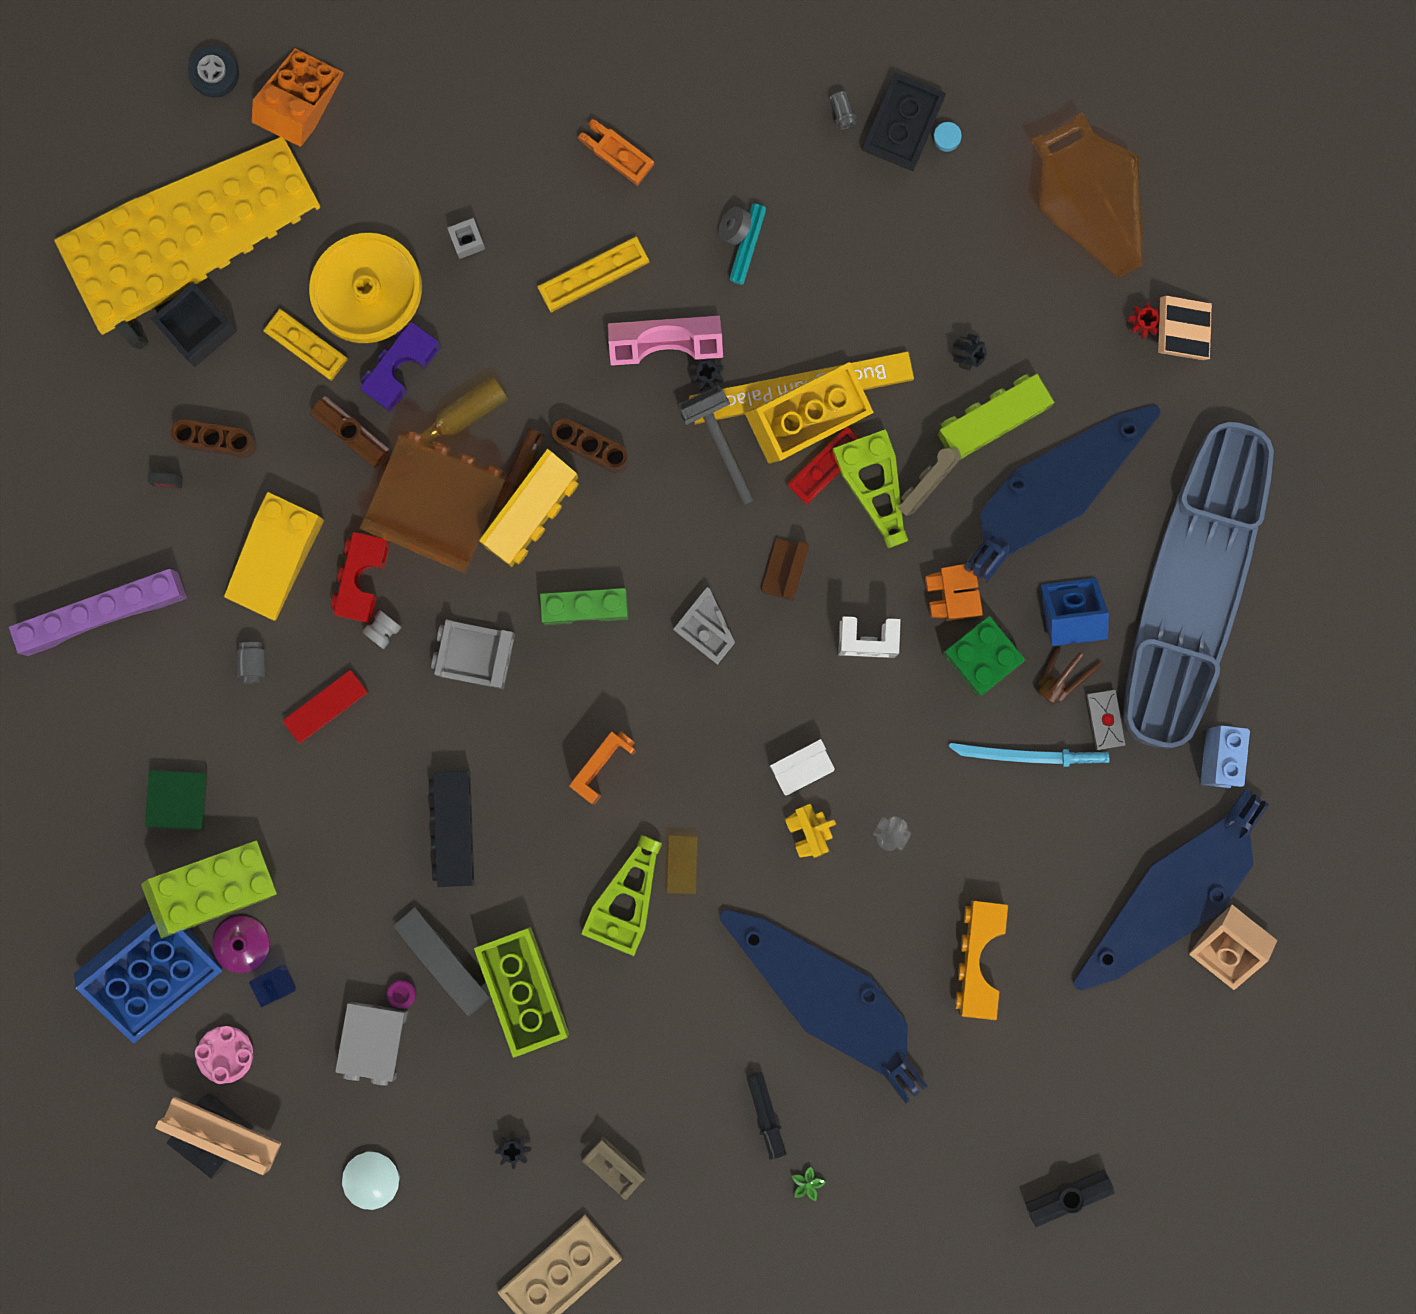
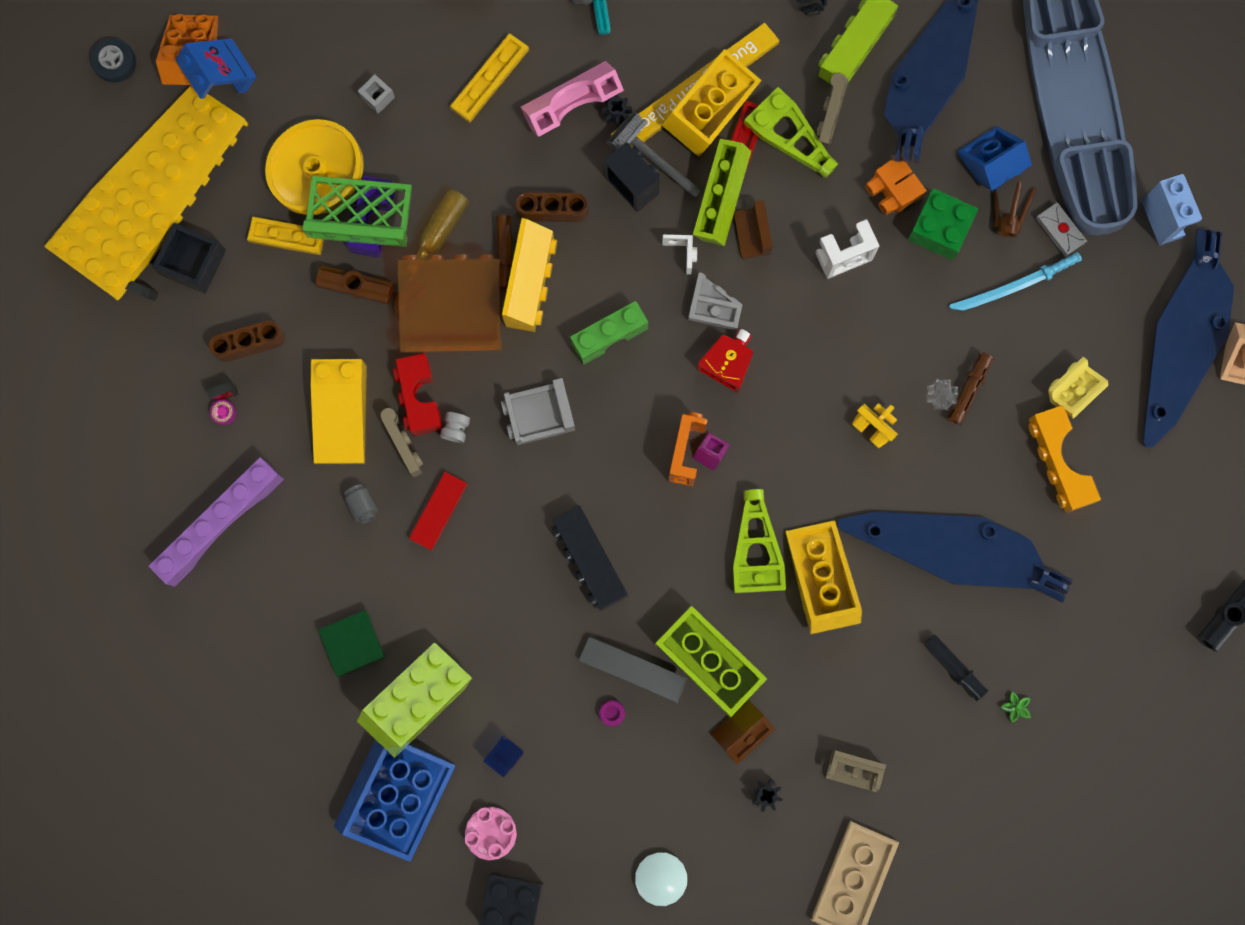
camera: 25 degrees left, 5 degrees down
(156, 500) = (223, 412): none -> tile
(219, 1136) = (521, 898): light nougat fence -> none
(255, 943) = (474, 736): magenta dish -> none
(312, 133) = (215, 64): none -> blue panel
(320, 618) = (401, 441): none -> dark tan plate
(370, 1042) = (607, 764): light grey panel -> none
(374, 380) = (353, 231): none -> bright green fence
(521, 1076) = (742, 731): none -> reddish brown panel
(630, 777) = (711, 451): none -> magenta slope
(678, 960) = (823, 577): none -> yellow slope
(682, 865) = (787, 500): clear yellow plate -> none
(685, 454) = (632, 176): none -> black piece
(692, 693) = (728, 360): none -> red torso
(709, 562) = (684, 240): none -> white bracket
(770, 516) = (722, 192): none -> lime brick
(802, 767) = (844, 378): white panel -> none
(930, 837) = (974, 380): none -> reddish brown pin
(1033, 893) = (1076, 388): none -> light yellow bracket

